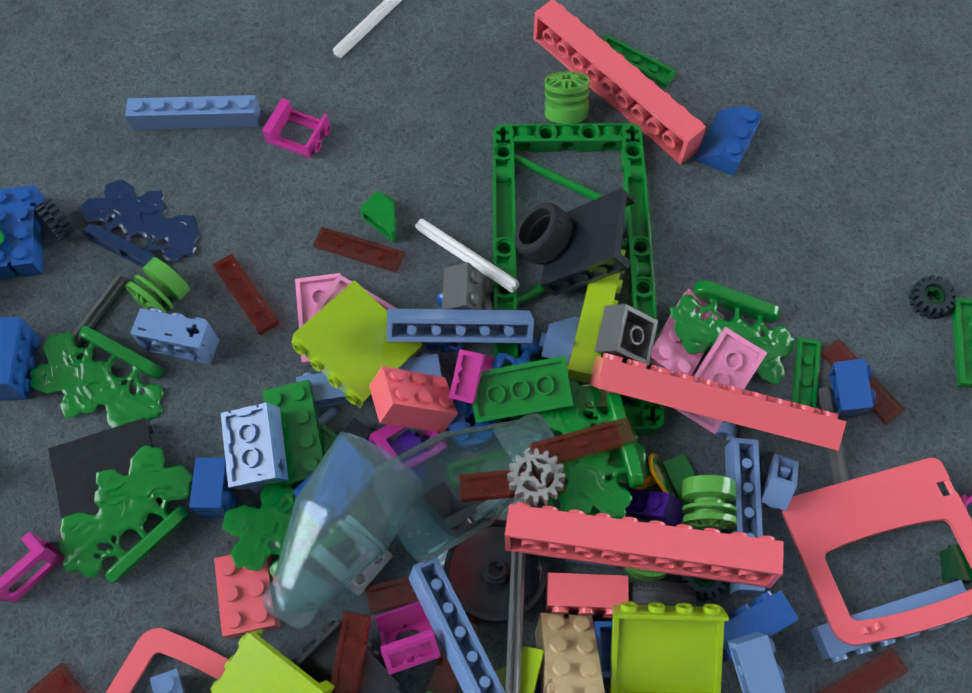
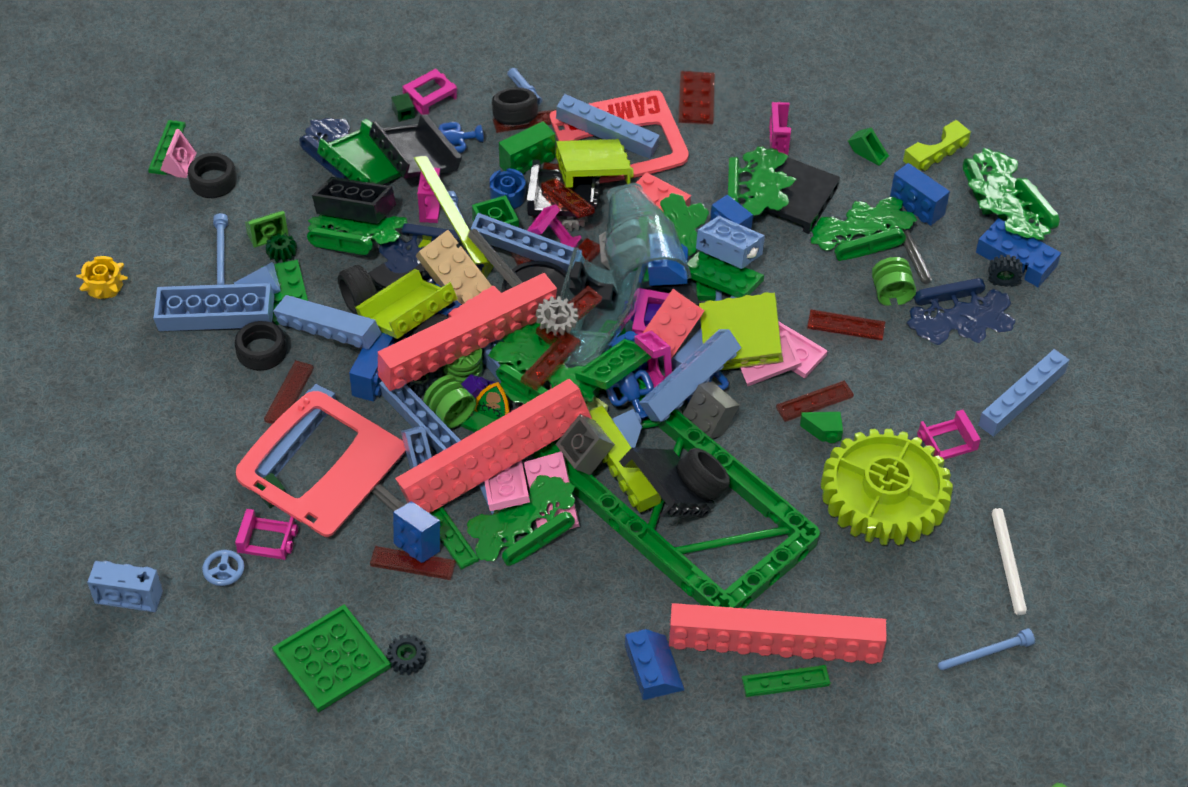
camera: 135 degrees right, 15 degrees down
(175, 335) = (848, 267): medium blue piece -> none
(396, 148) = (886, 486): none -> lime gear
(467, 255) = (741, 436): white axle -> none
(567, 97) = (795, 587): bright green wheel -> none

